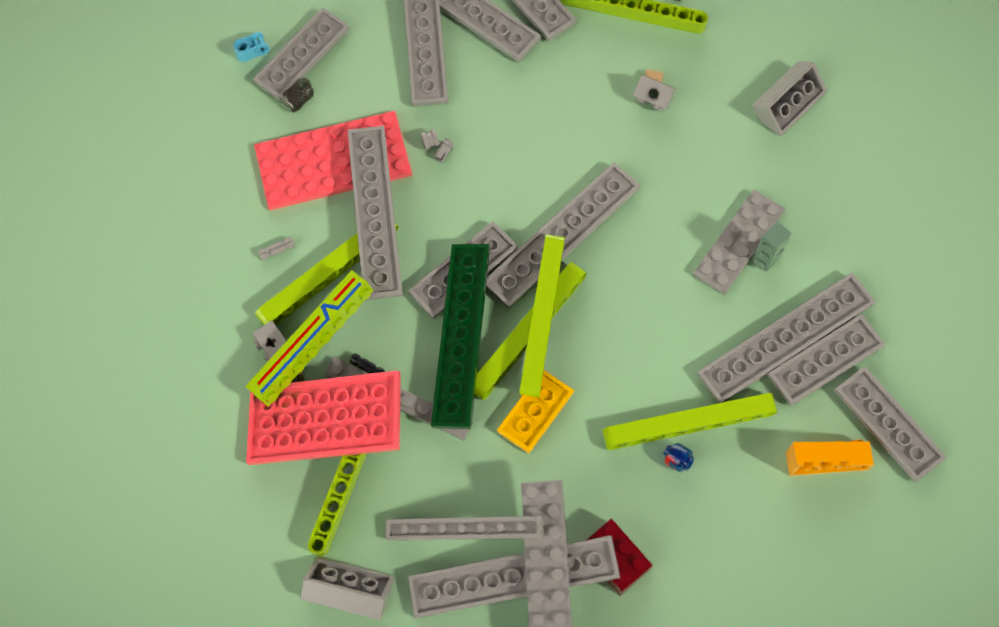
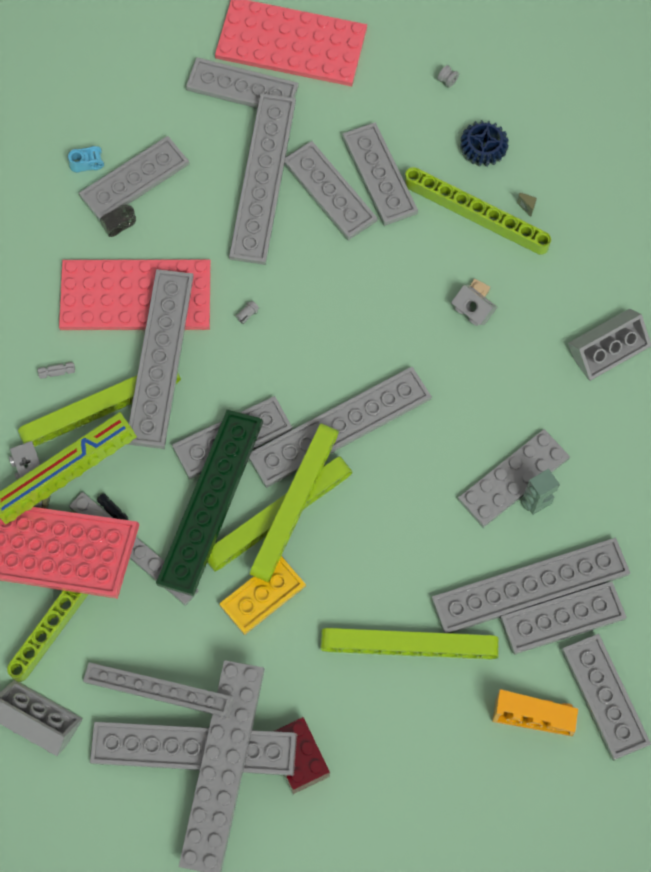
camera: 10 degrees right, 0 degrees up
(430, 139) = (236, 297): light grey wheel -> none
(678, 457) = (388, 675): head -> none

